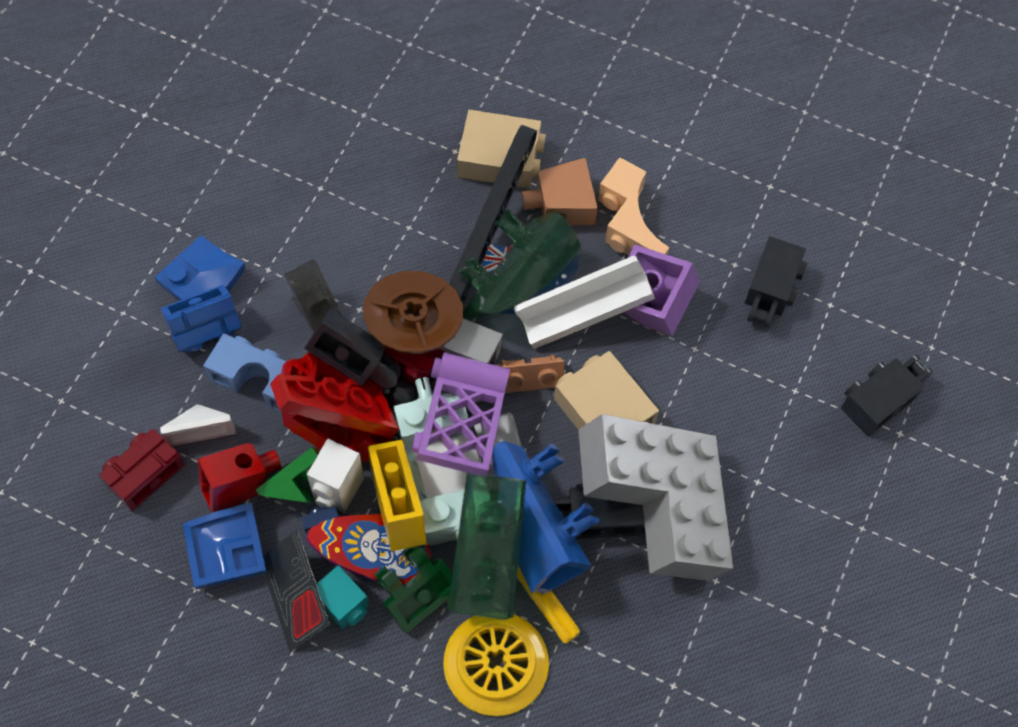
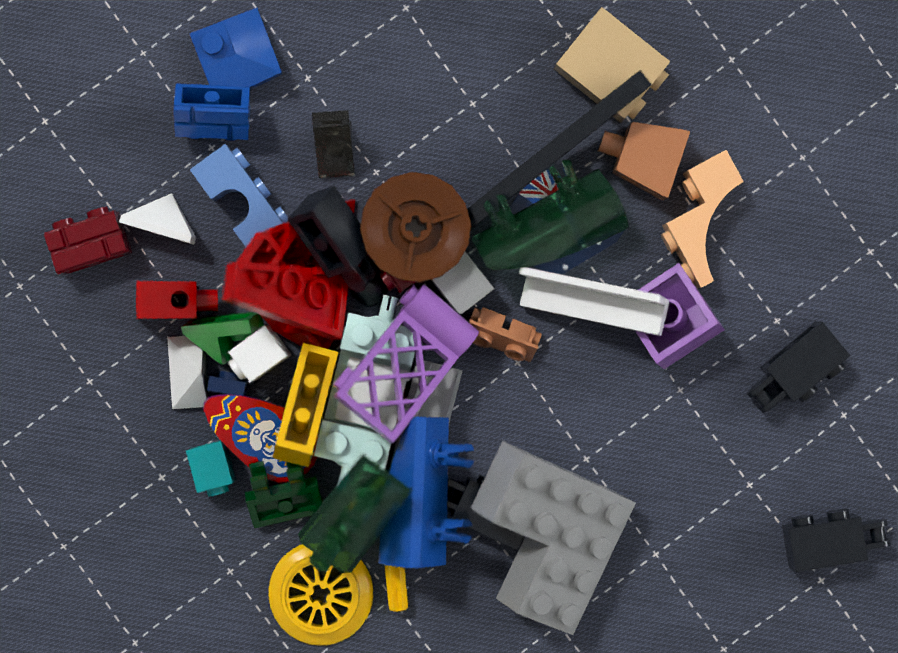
camera: 35 degrees right, 25 degrees up
(224, 546) = (129, 360): blue plate -> none
(277, 523) = (187, 373): none -> white slope
(294, 591) = (172, 438): black sticker -> none
(603, 389) = (555, 406): tan brick -> none

